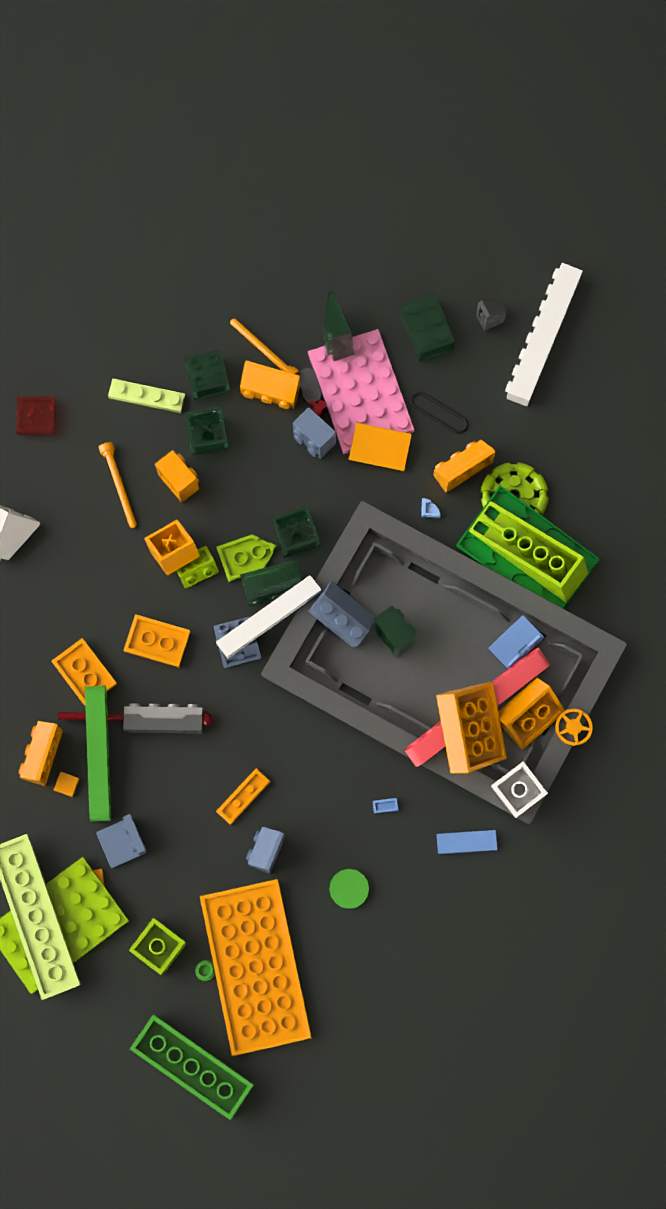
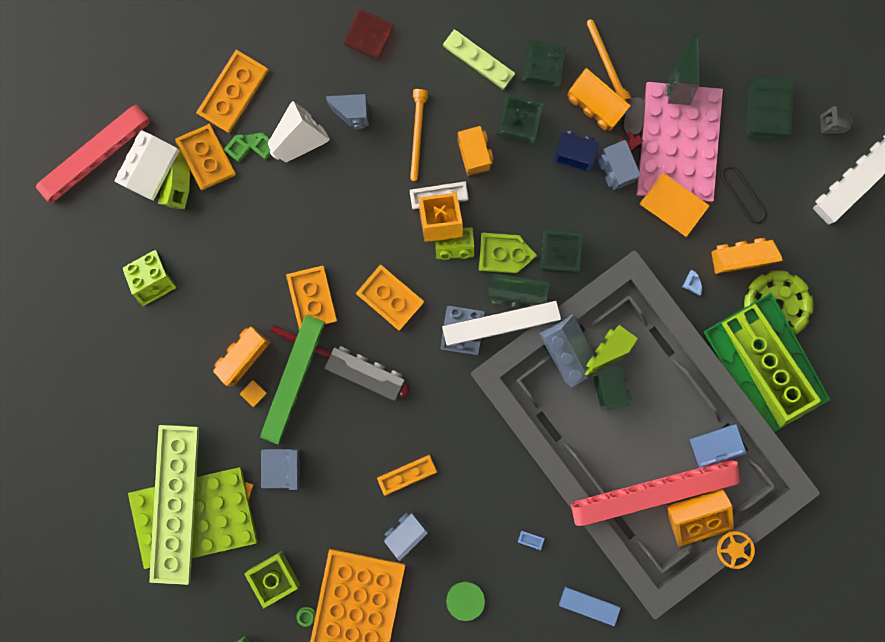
camera: 25 degrees right, 10 degrees up
(47, 487) = (351, 109): none -> sand blue slope
(178, 515) = (459, 188): none -> white tile
(269, 437) = (576, 151): none -> clear blue piece
(381, 598) = (615, 349): none -> lime slope
(471, 727) = (642, 513): light orange slope -> none
(519, 789) = (660, 589): white brick -> none

